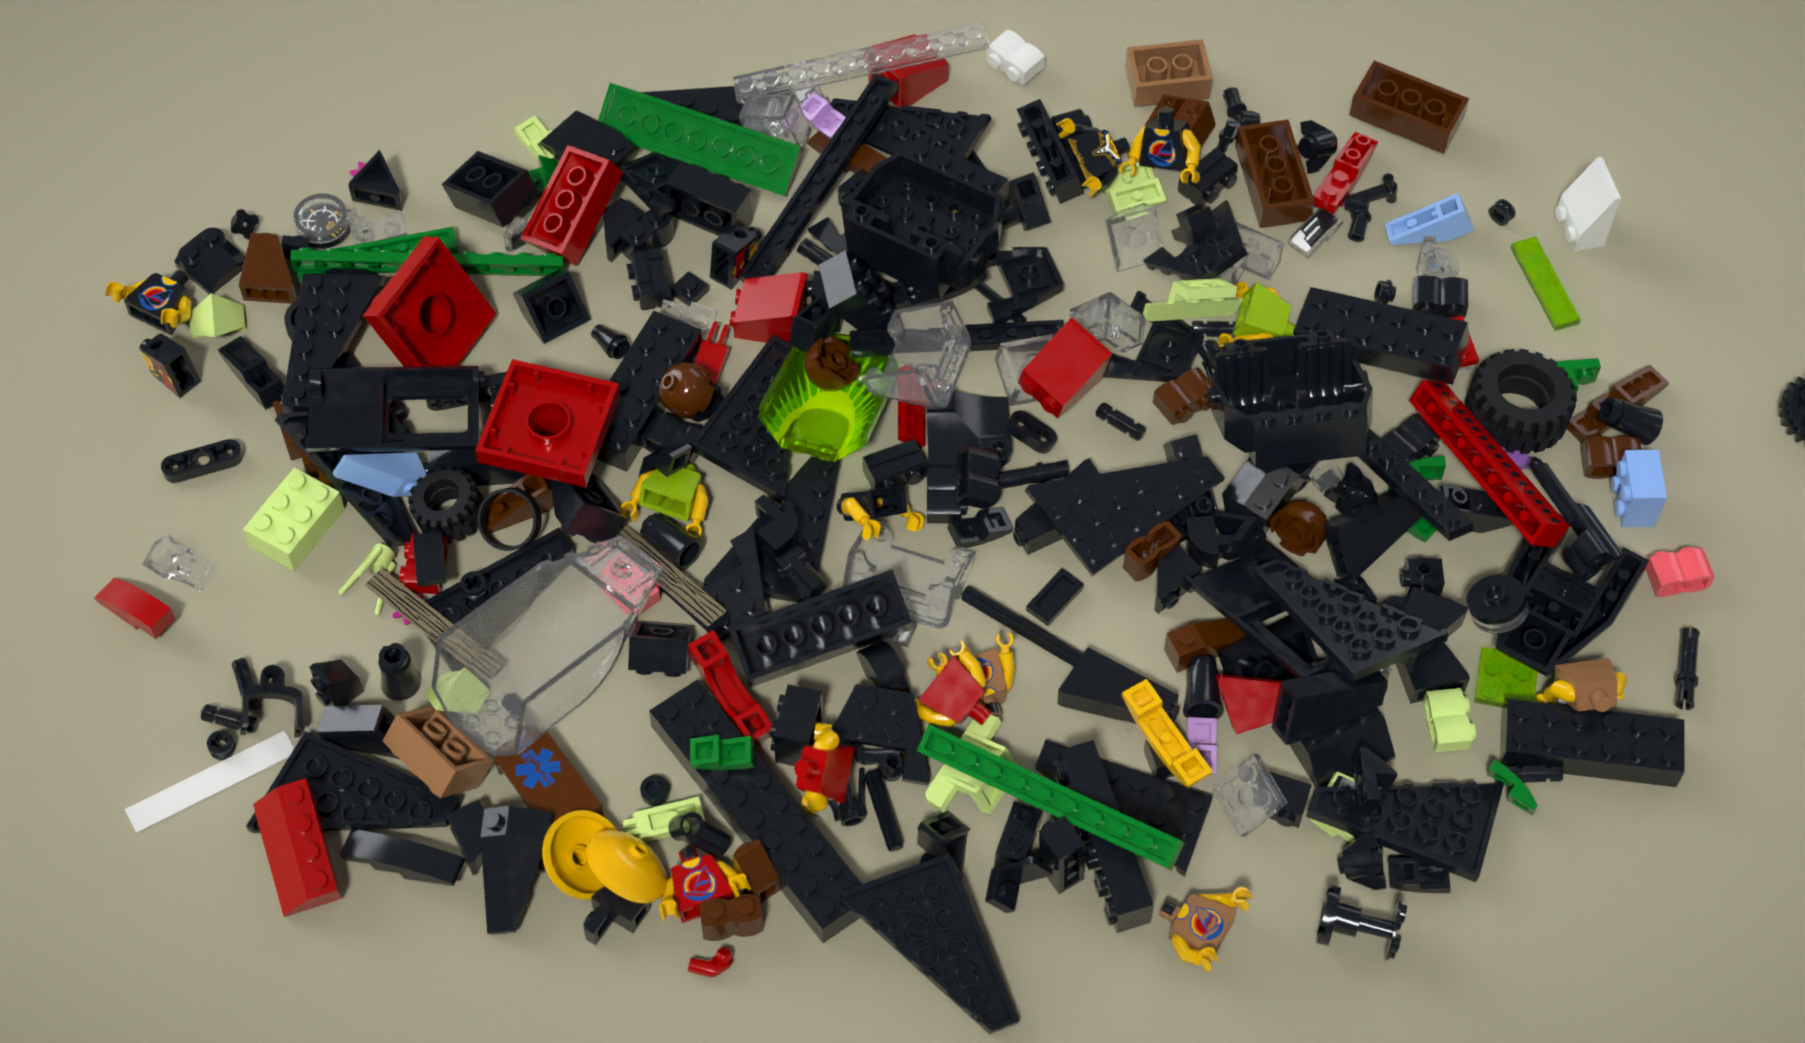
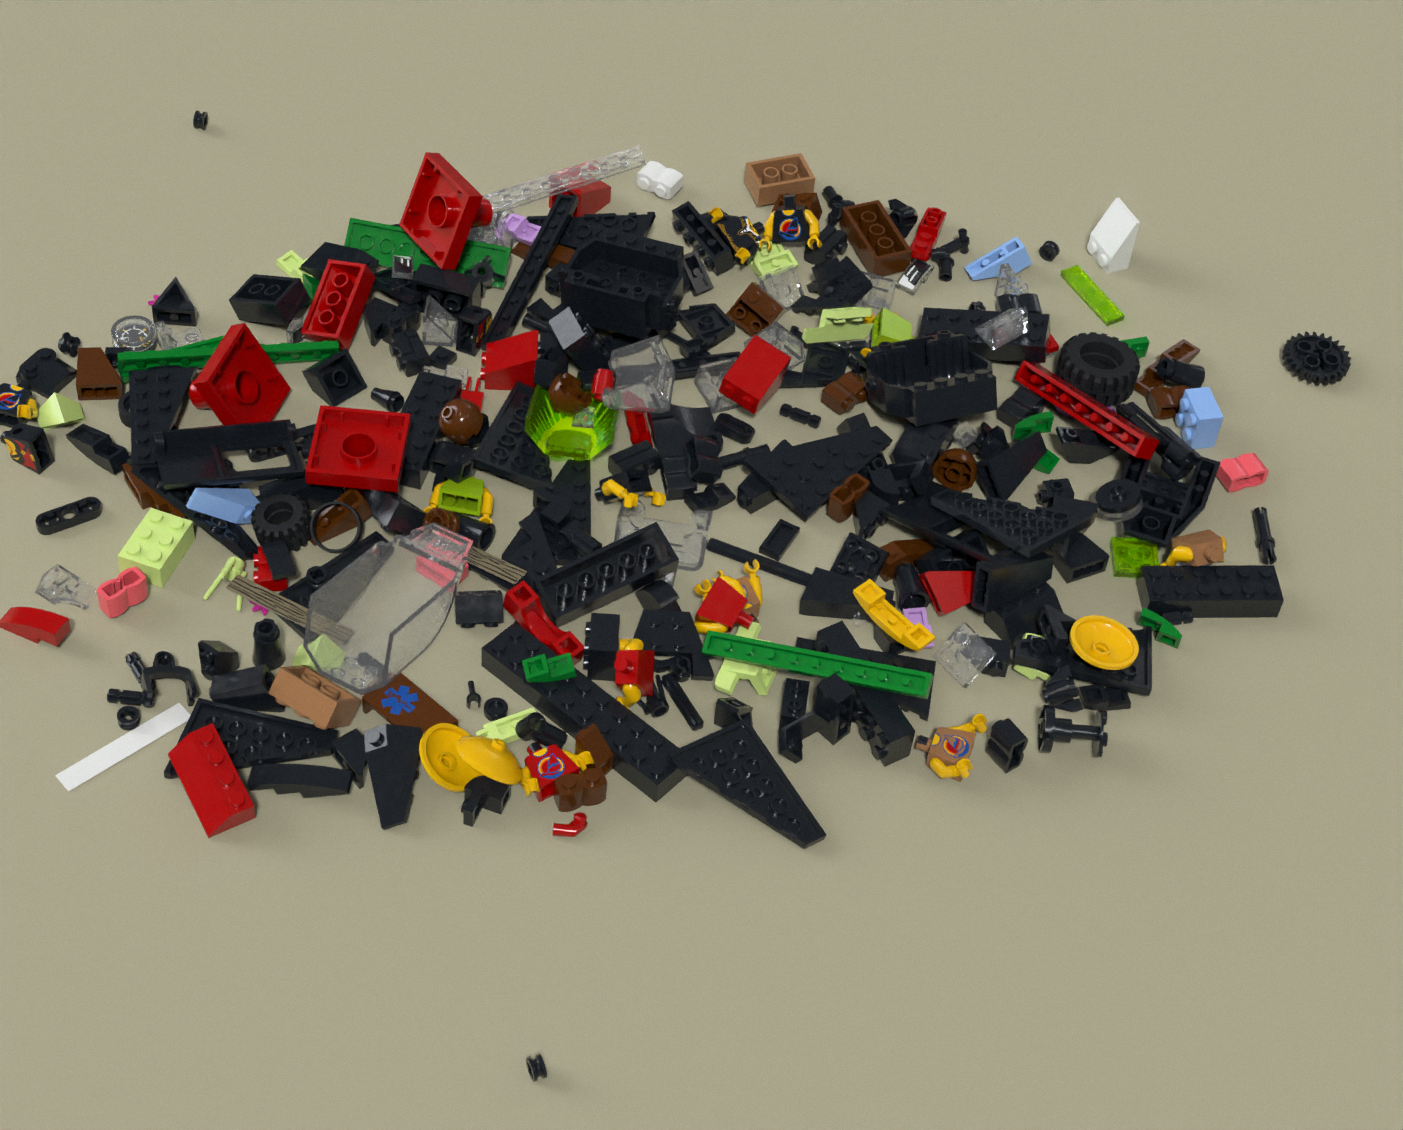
camera: 15 degrees left, 10 degrees down
(238, 579) = (124, 591): none -> coral brick
(630, 769) = (472, 696): none -> black hand
(638, 529) = (444, 518): none -> reddish brown wheel
(661, 158) = (402, 267): none -> slope
(690, 244) = (438, 325): none -> clear slope
(717, 96) = (443, 211): none -> red piece
(767, 181) = (489, 277): none -> black brick
(845, 398) = (584, 418): none -> clear tile
(875, 354) = (601, 380): none -> red brick
(1095, 264) = (756, 309): none -> reddish brown slope
(1145, 645) = (860, 559): none -> black tile
(1272, 931) = (1006, 745): none -> black brick
(1402, 335) = (1004, 327): none -> clear slope
(1409, 106) = (963, 187): reddish brown brick -> none
(1415, 489) = (1038, 430): black plate -> none
(1433, 798) = (1103, 642): none -> yellow dish
(1448, 720) = (1099, 588): yellowish green brick -> none

